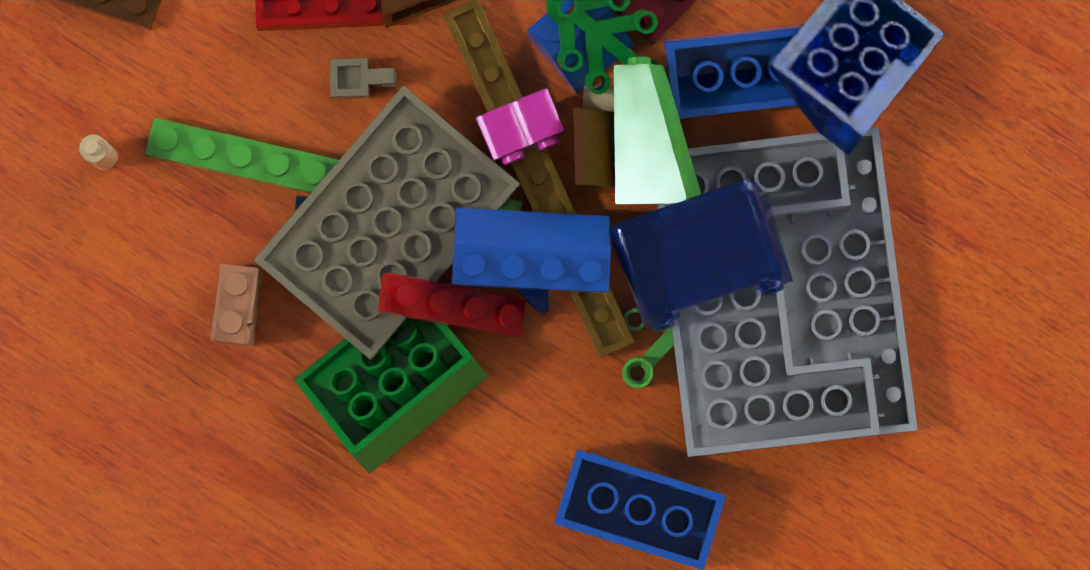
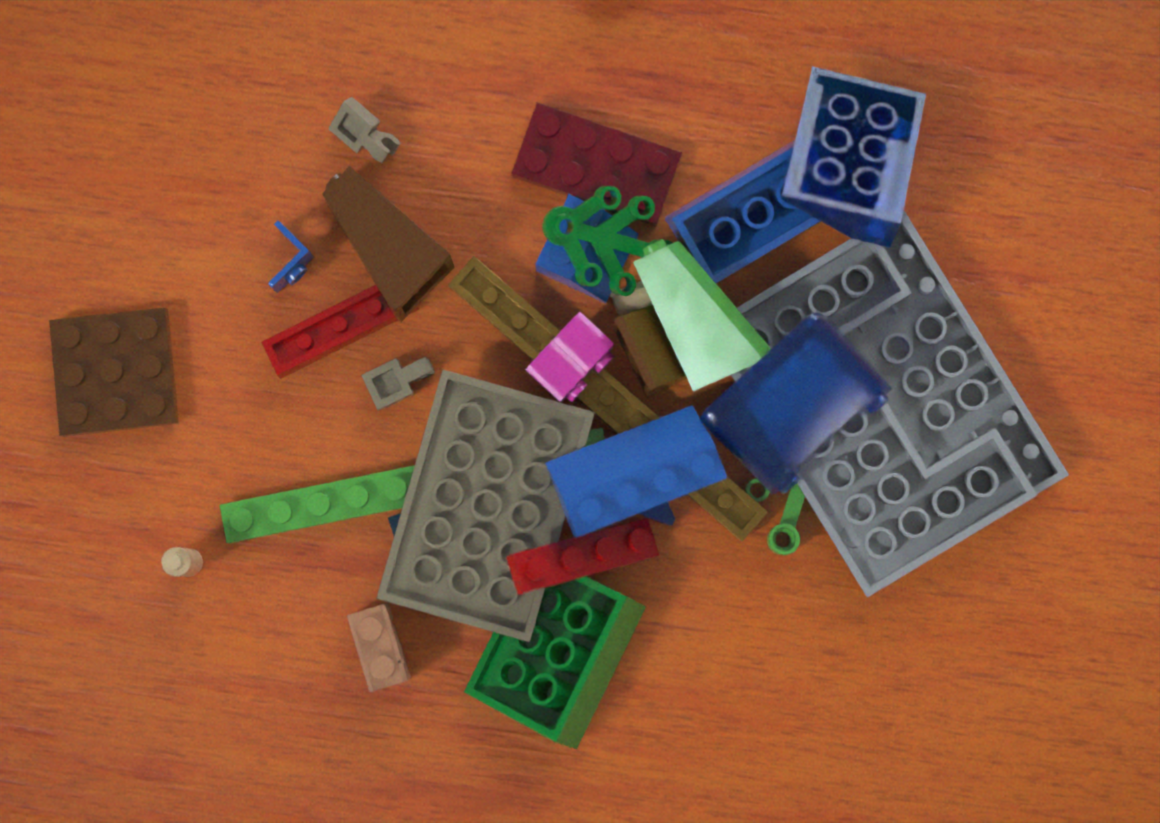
camera: 25 degrees left, 0 degrees up
(640, 509) = (846, 668): blue brick -> none

